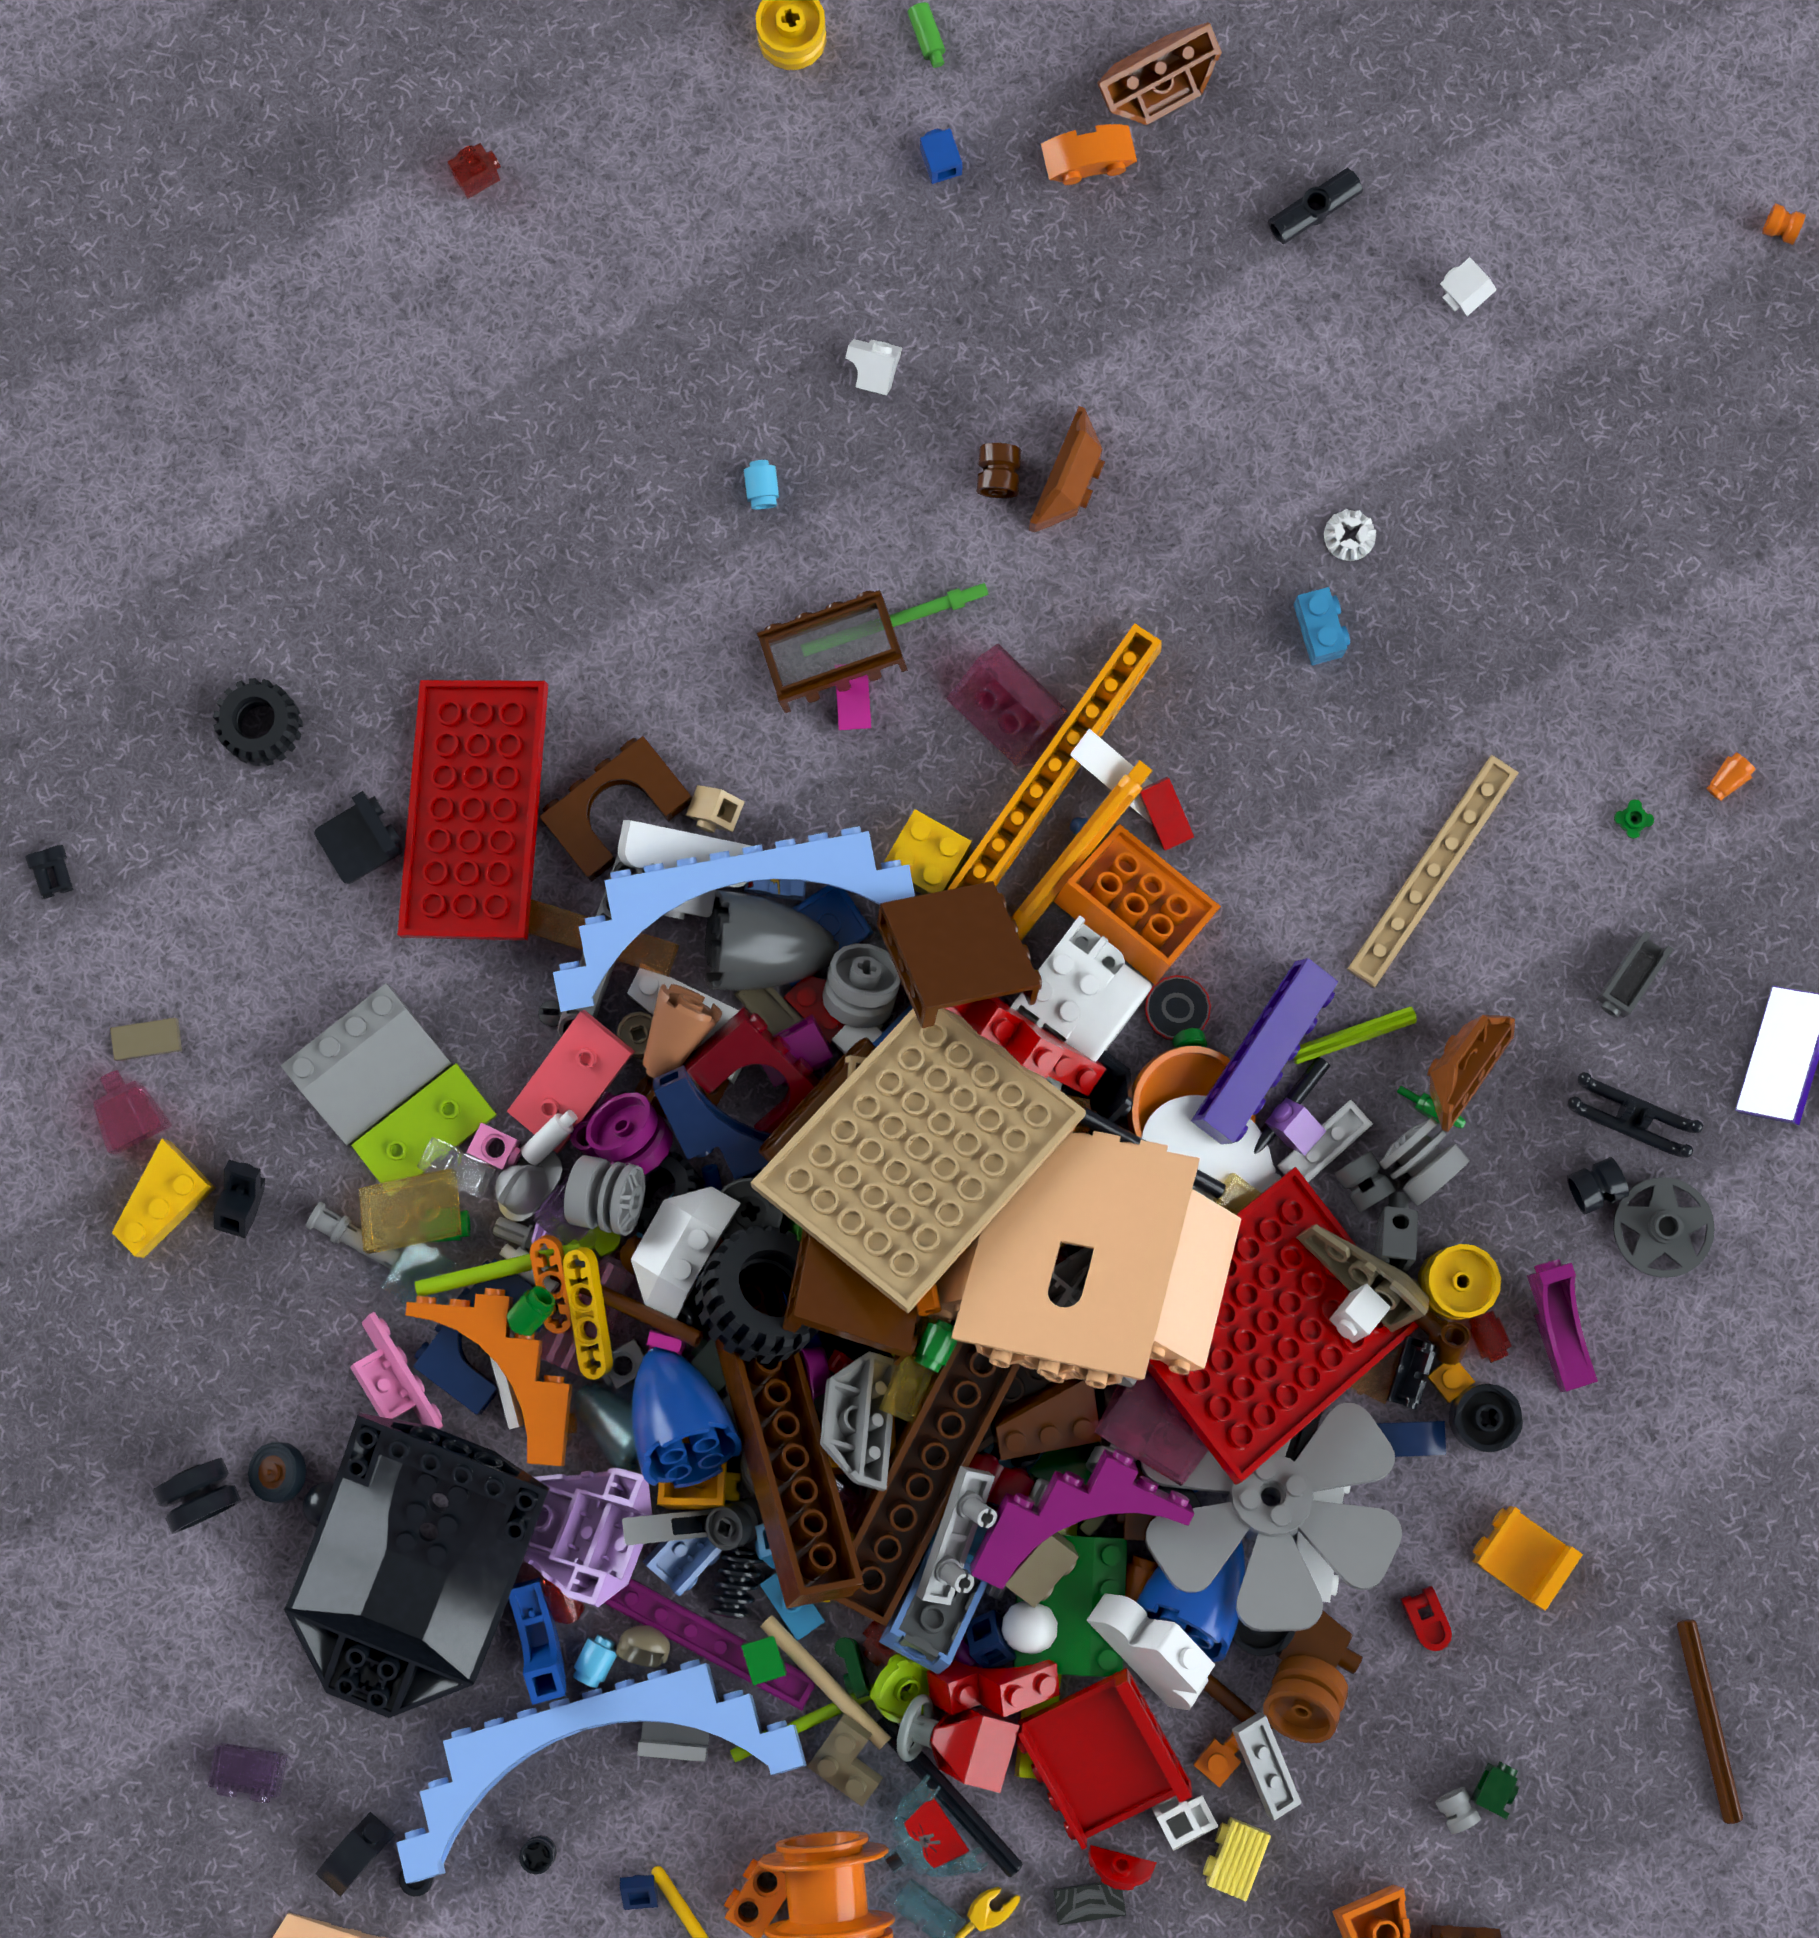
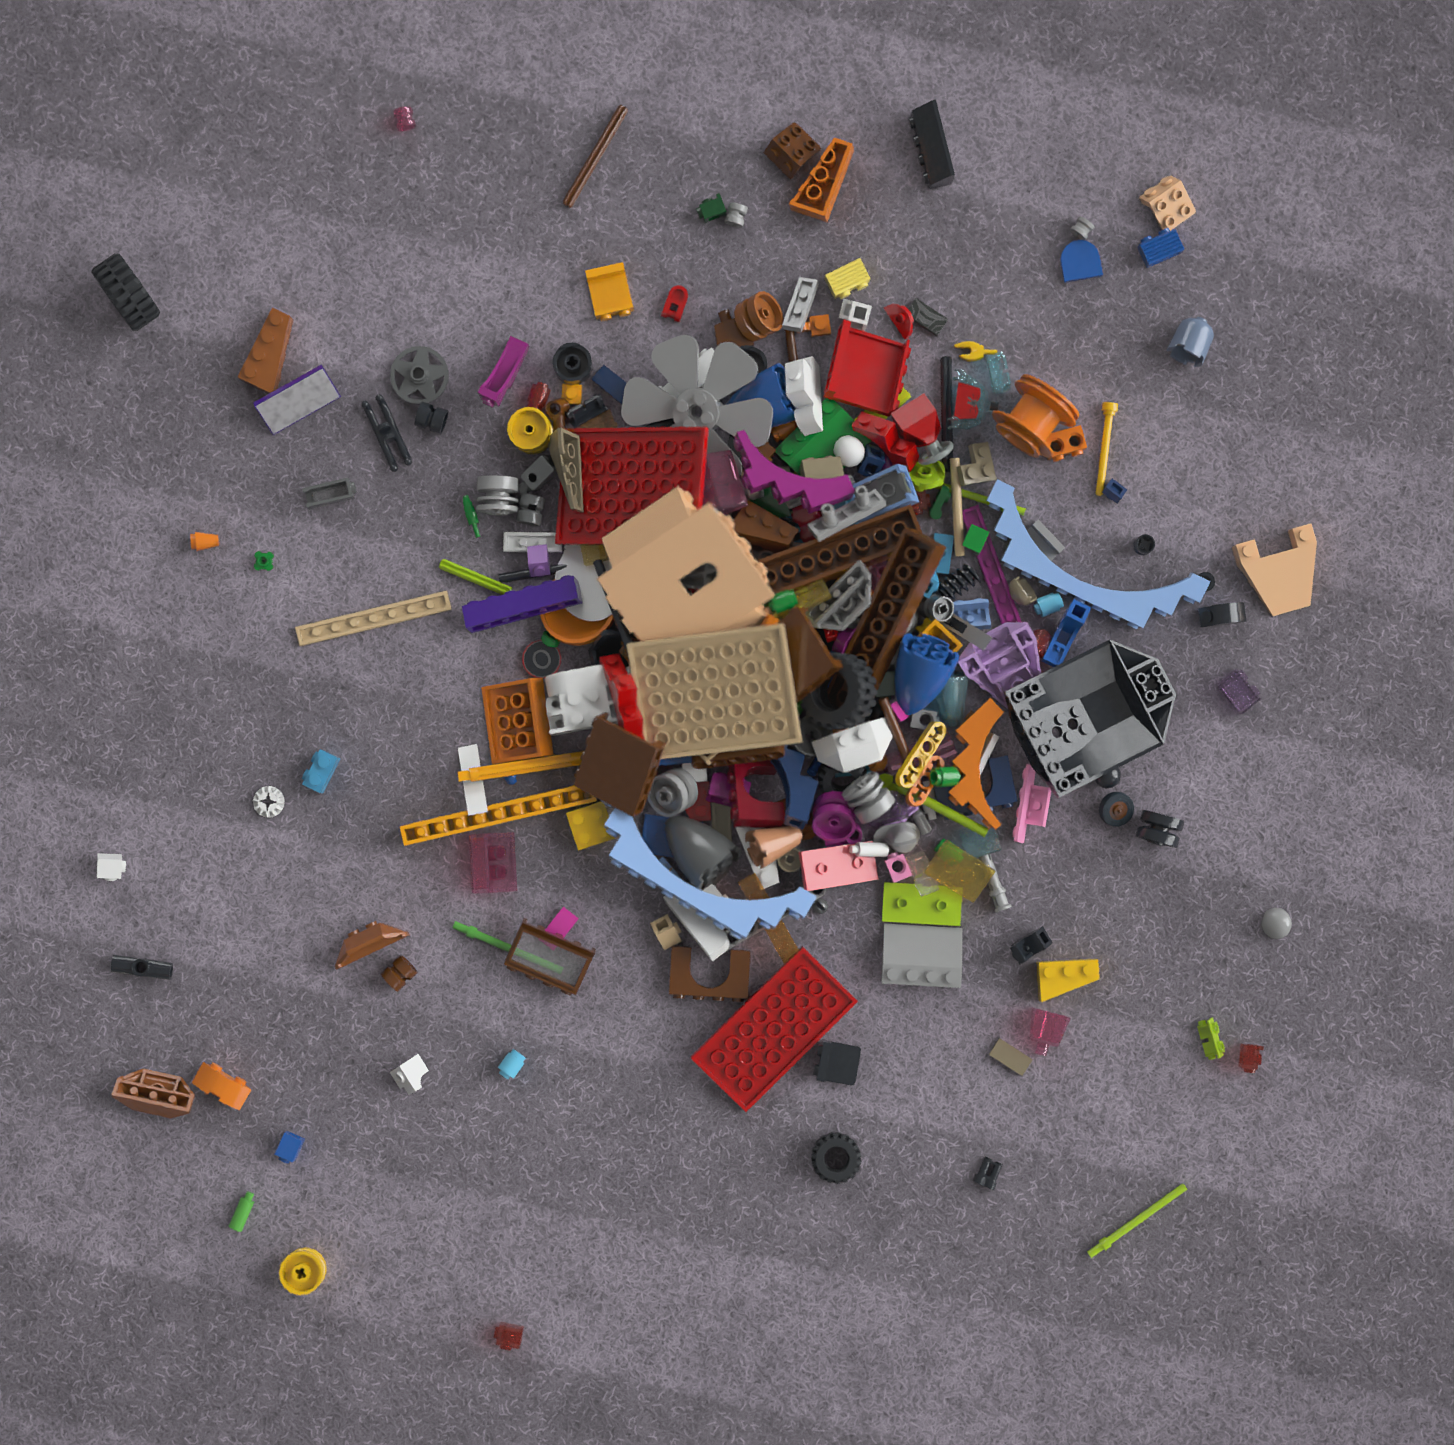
camera: 140 degrees left, 5 degrees up
(1166, 813) = (467, 749): red tile -> none
(1359, 1313) = (586, 454): white brick -> none
(1466, 1064) = (440, 520): dark orange wedge -> none

